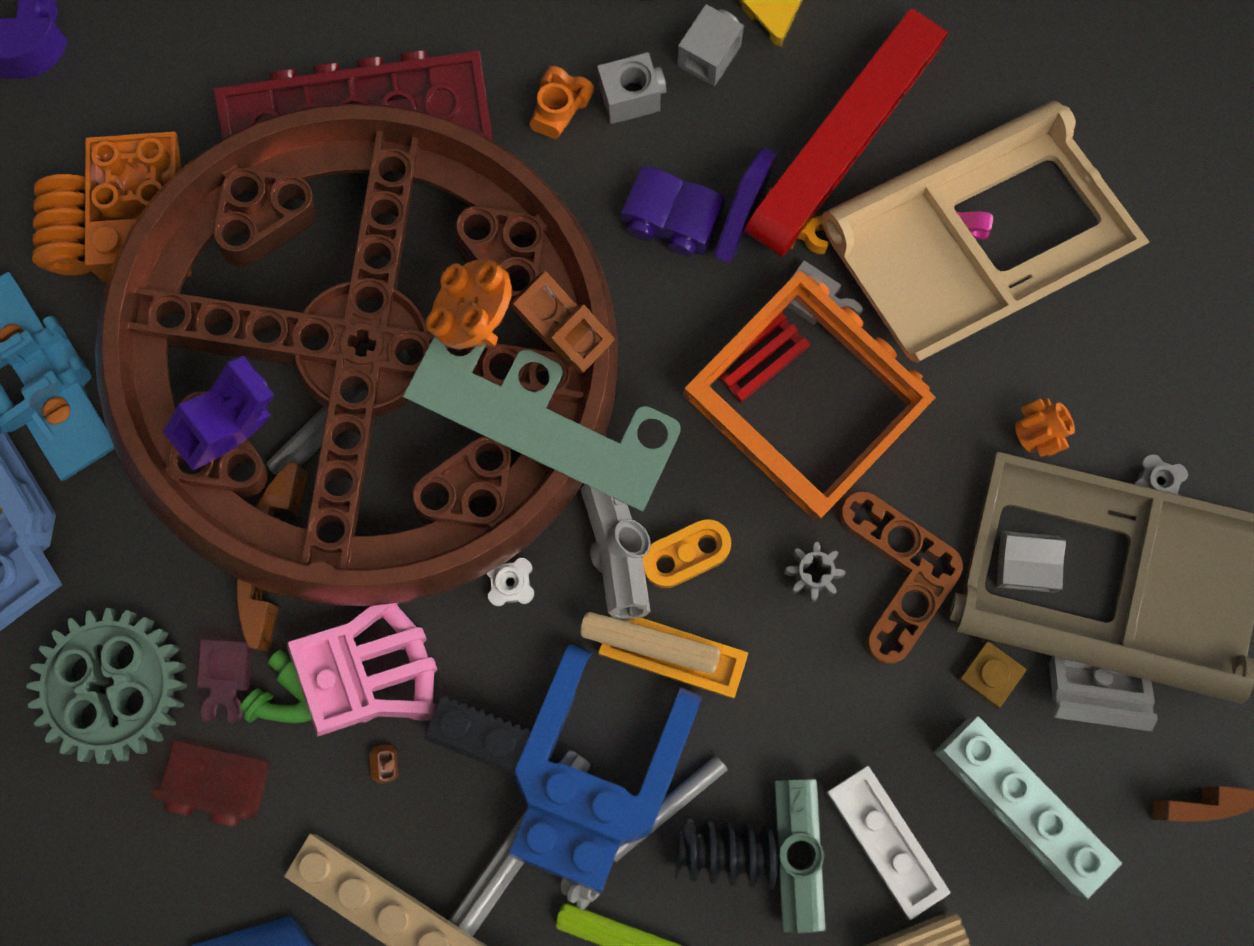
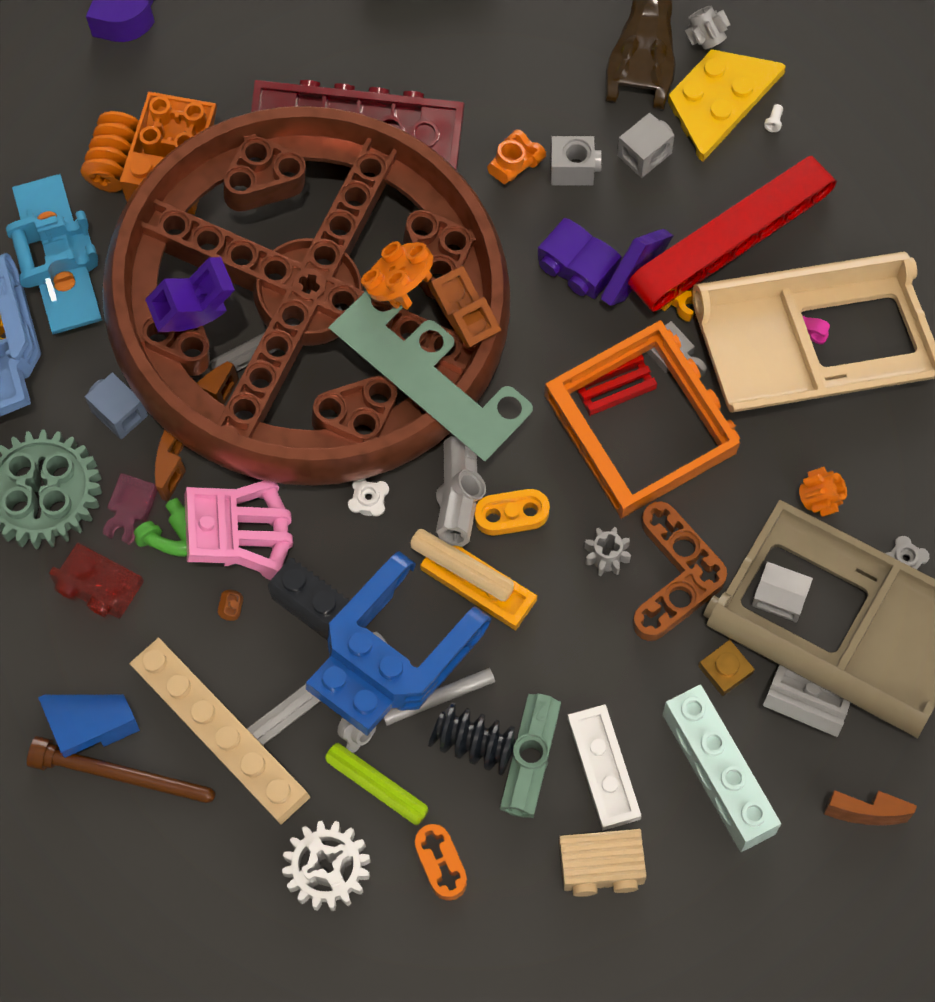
camera: 15 degrees right, 10 degrees down
(164, 553) = (115, 405): none -> sand blue brick

